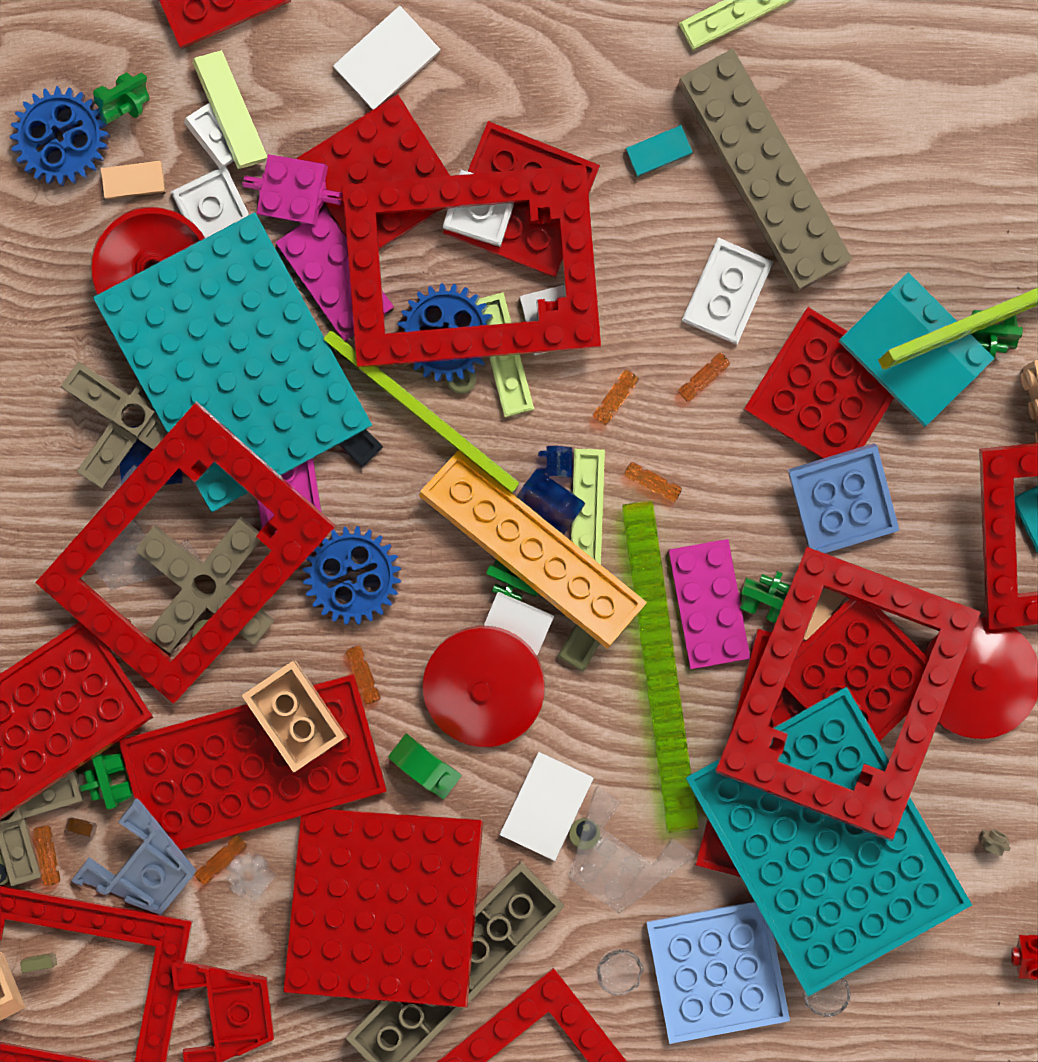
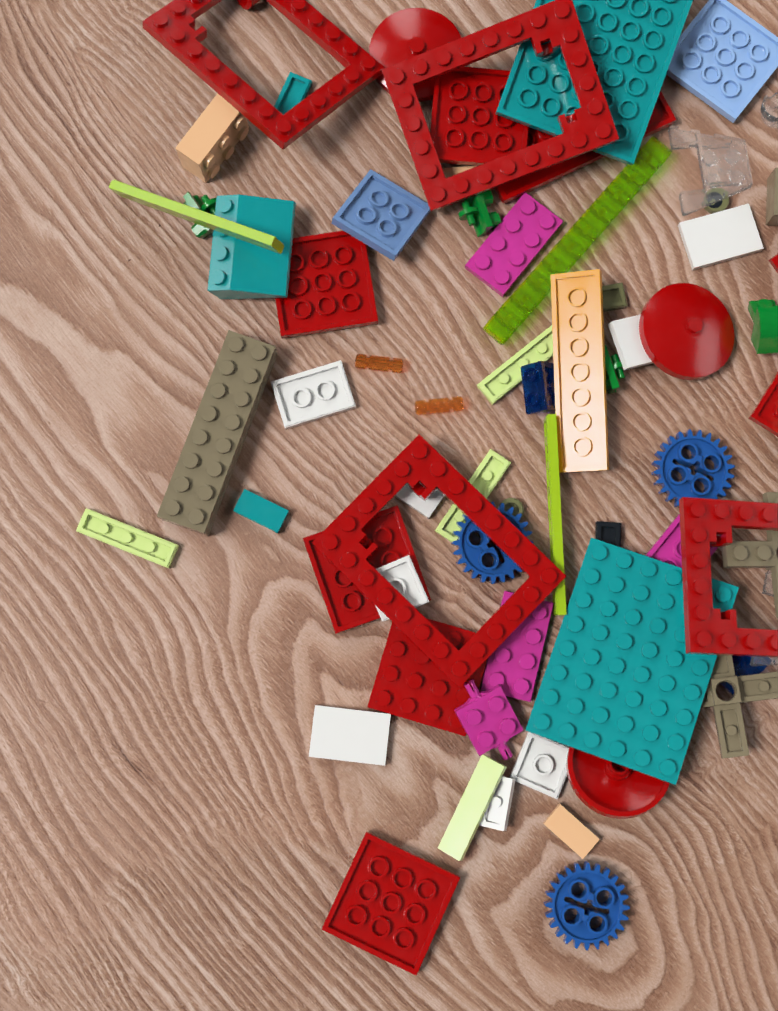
camera: 130 degrees left, 5 degrees down
(123, 98) = (527, 883): green hips -> none
(363, 674) = (744, 412): clear orange axle -> none
(558, 461) = (510, 404): clear blue tile -> none
(653, 481) = (470, 339): clear orange axle -> none

